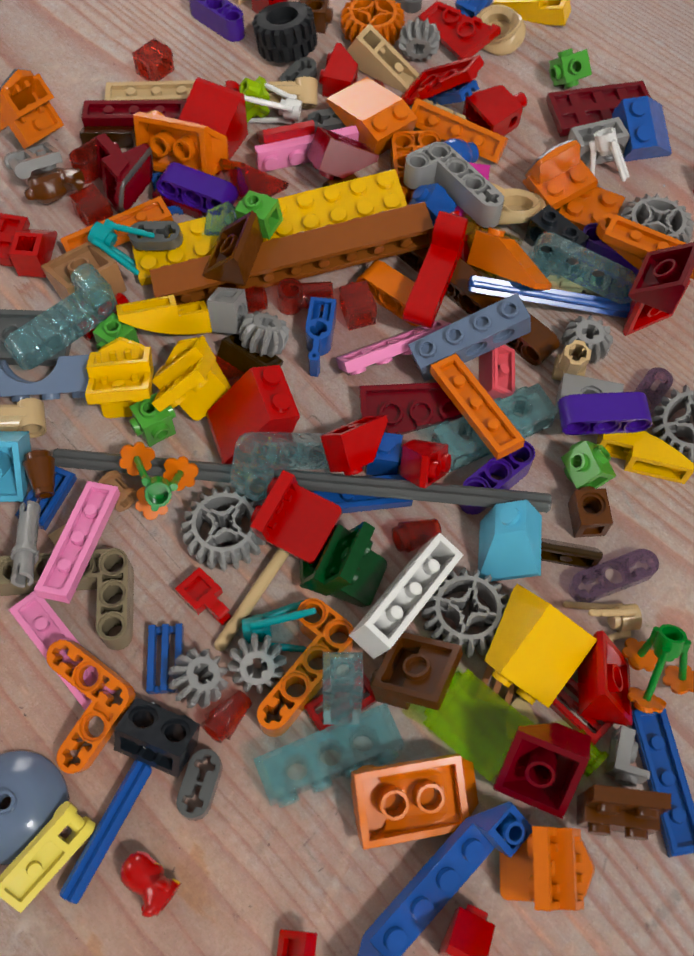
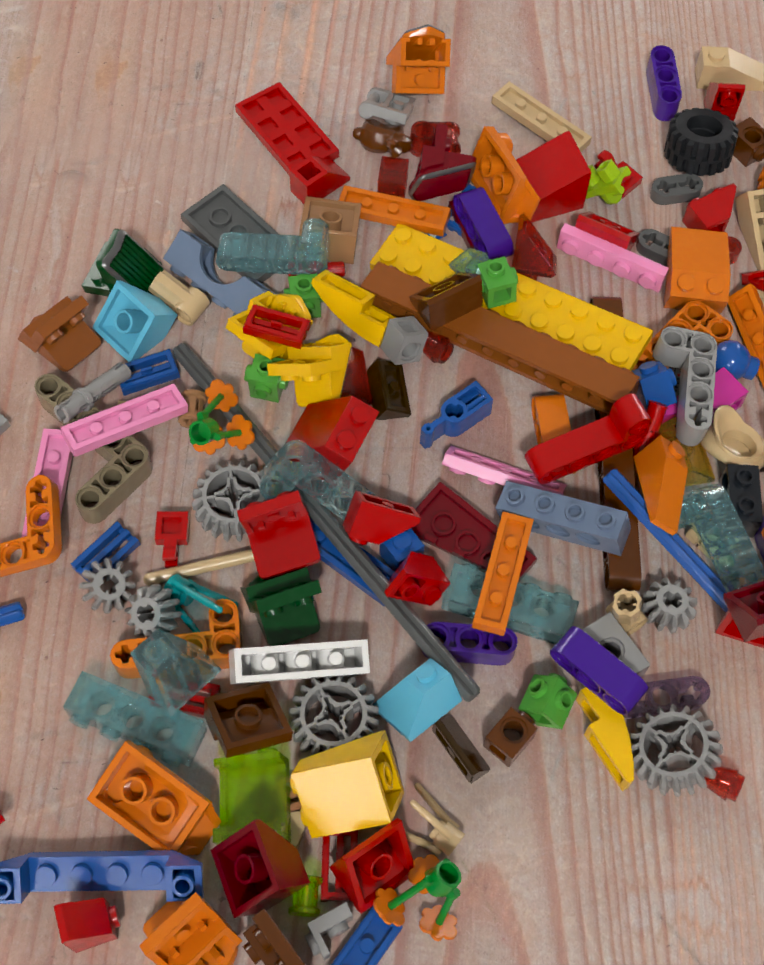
camera: 45 degrees right, 0 degrees up
(41, 472) = (154, 351): reddish brown cone -> none
(104, 237) = (370, 208): teal plant -> none
(122, 111) = (494, 113): dark red plate -> none
(122, 135) = (469, 125): dark brown slope -> none
(133, 372) = (274, 330): none -> red tile
(153, 60) = (567, 89): clear red brick -> none
(154, 743) = (37, 599): black brick -> none
(159, 242) = (414, 235): dark grey beam -> none
(191, 782) = (40, 657): dark grey beam -> none
(226, 717) = (100, 629): clear red cone -> none
(263, 334) = (412, 380): light grey gear -> none
(288, 108) = (631, 212): white plant -> none
(294, 295) = (491, 381): clear red piece -> none
(304, 87) = (656, 204): tan piece -> none
(338, 154) = (625, 283): dark red slope -> none
(357, 304) = (511, 417): clear red brick -> none
(413, 534) = (359, 627): clear red cone -> none
(498, 372) = (567, 567): coral slope -> none
(621, 564) = (480, 815): clear purple beam -> none

